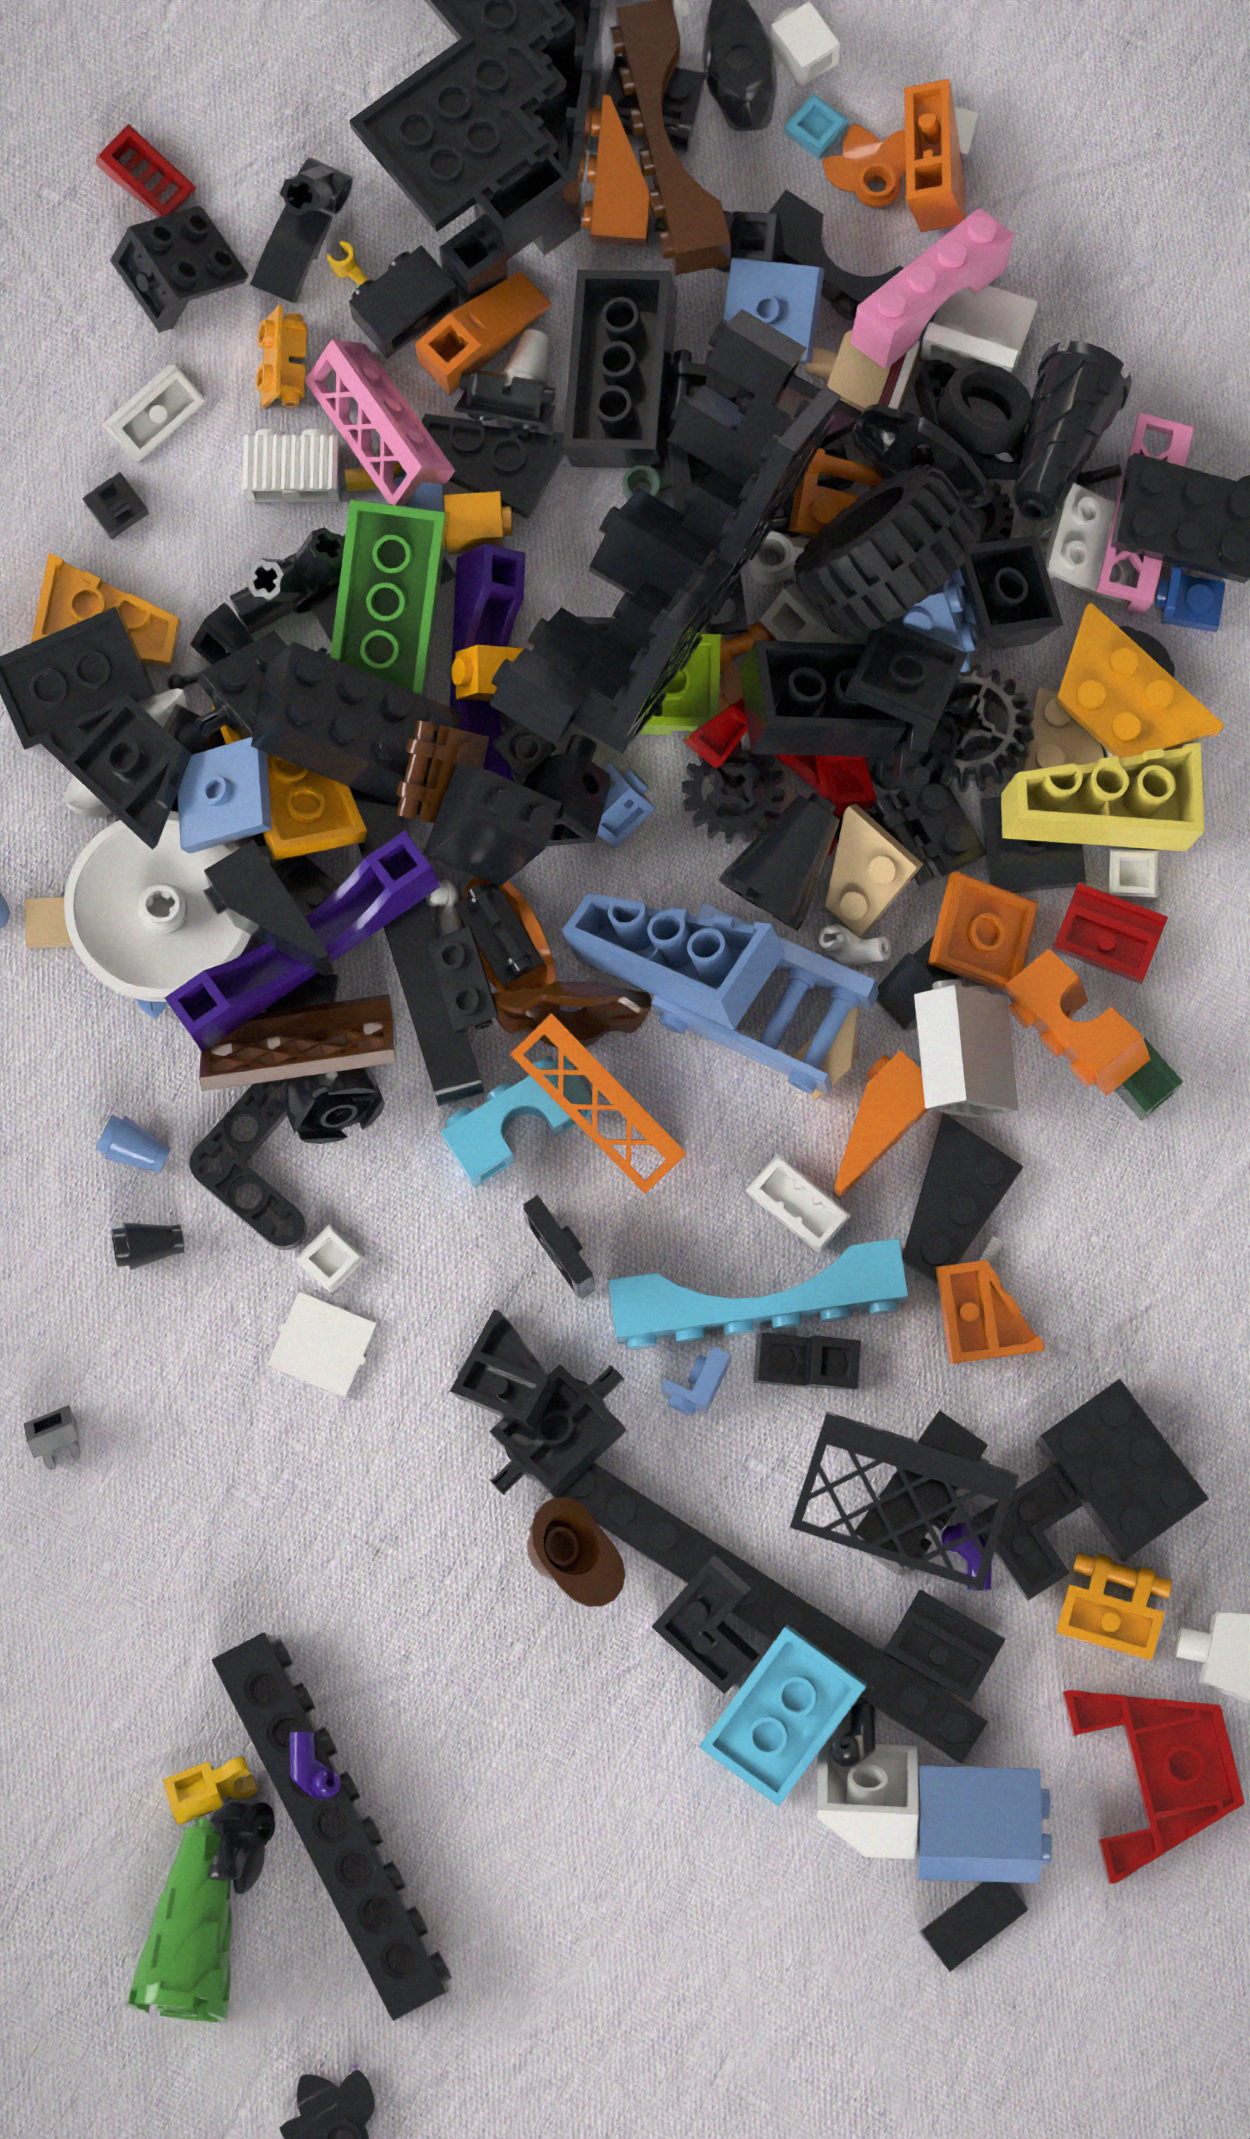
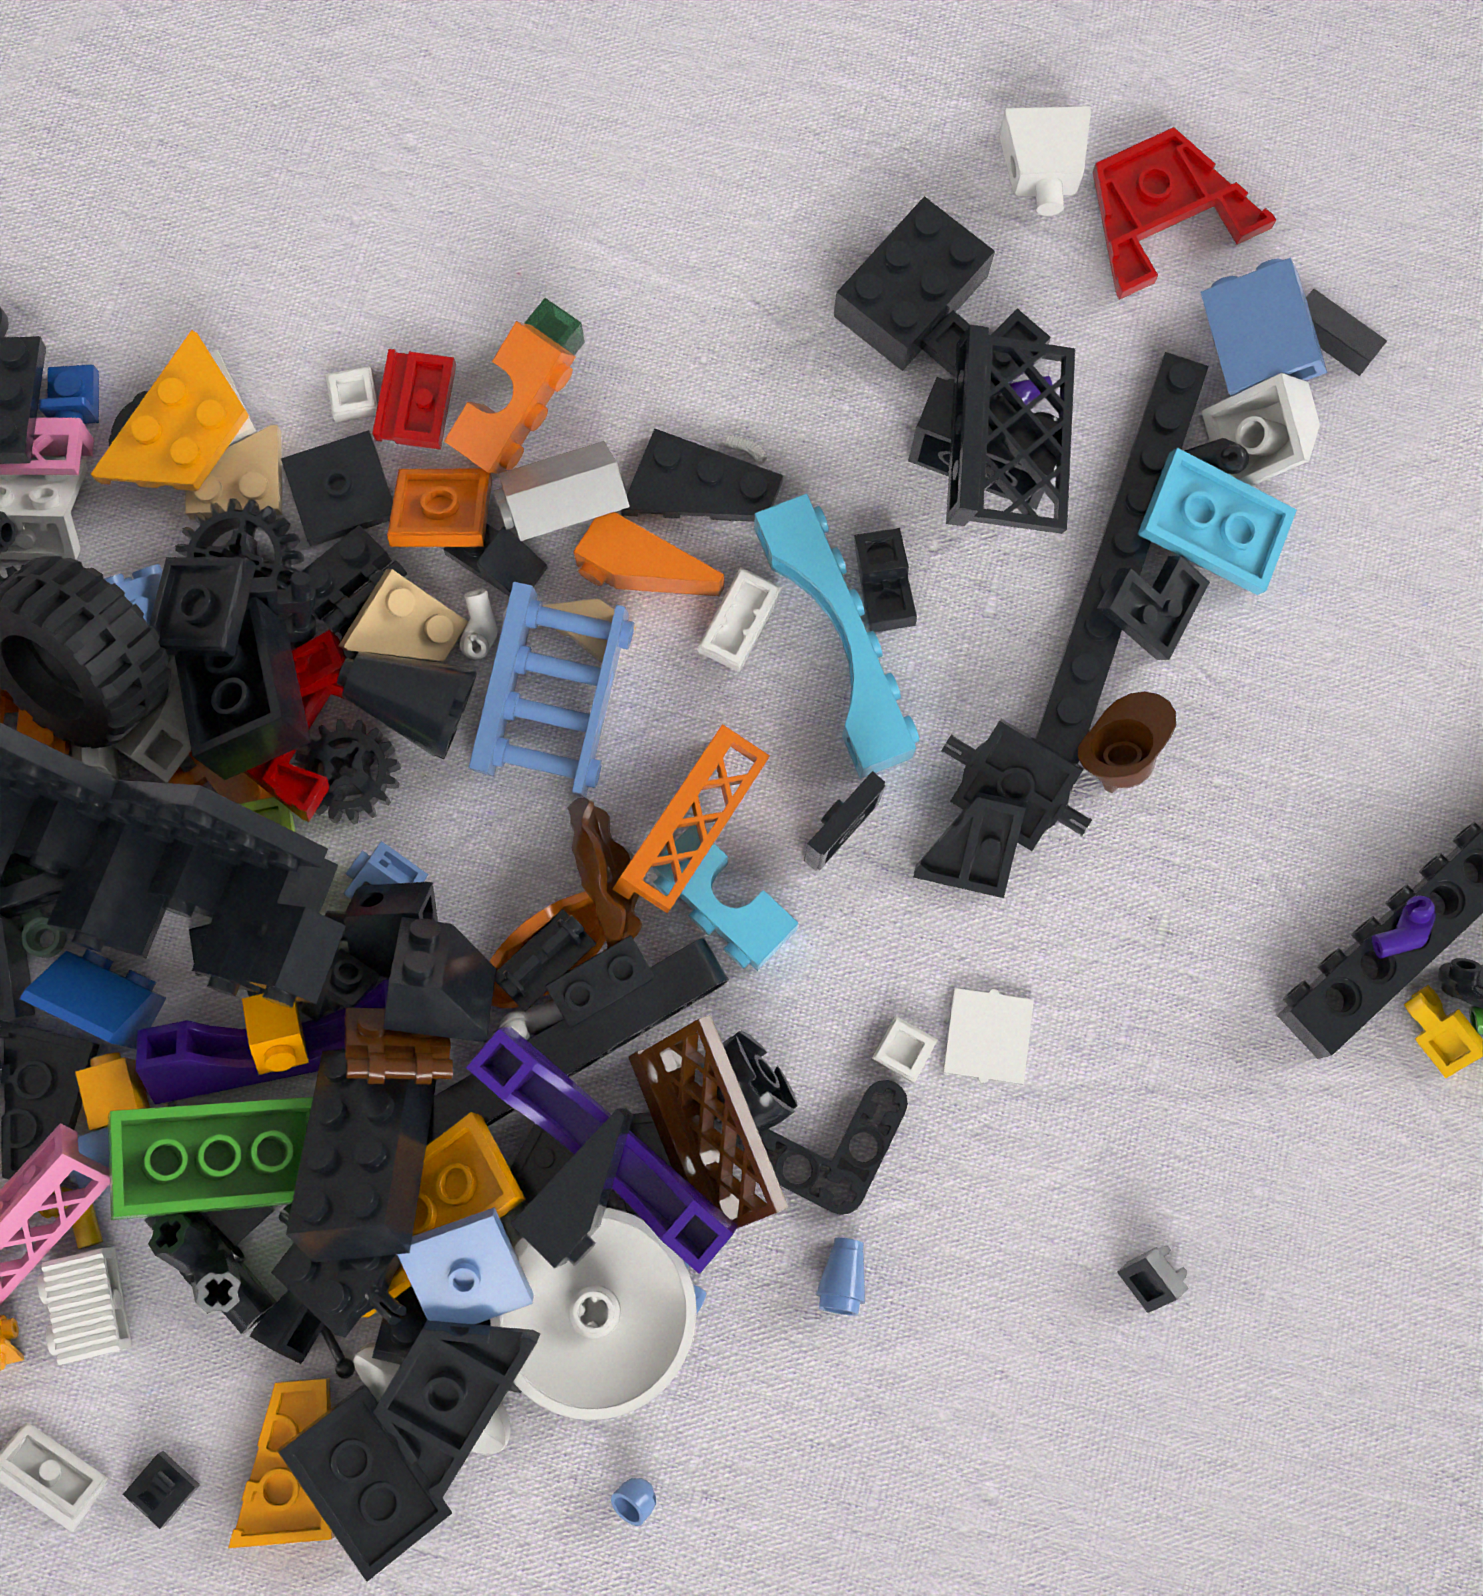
camera: 110 degrees left, 0 degrees up
(45, 923) = (632, 1435): tan tile -> none
(145, 1243) = (939, 1237): black cone -> none
(563, 522) = (95, 998): none -> blue slope
(682, 957) = (530, 776): medium blue wedge -> none
(706, 1376) = (926, 661): medium blue bracket -> none
(944, 1646) = (1111, 402): black plate -> none
(980, 1315) = (803, 435): orange wing -> none
(1010, 592) = (99, 537): black slope -> none
(1111, 1621) = (1047, 269): light orange plate -> none
(1113, 802) = (287, 404): light yellow wedge -> none

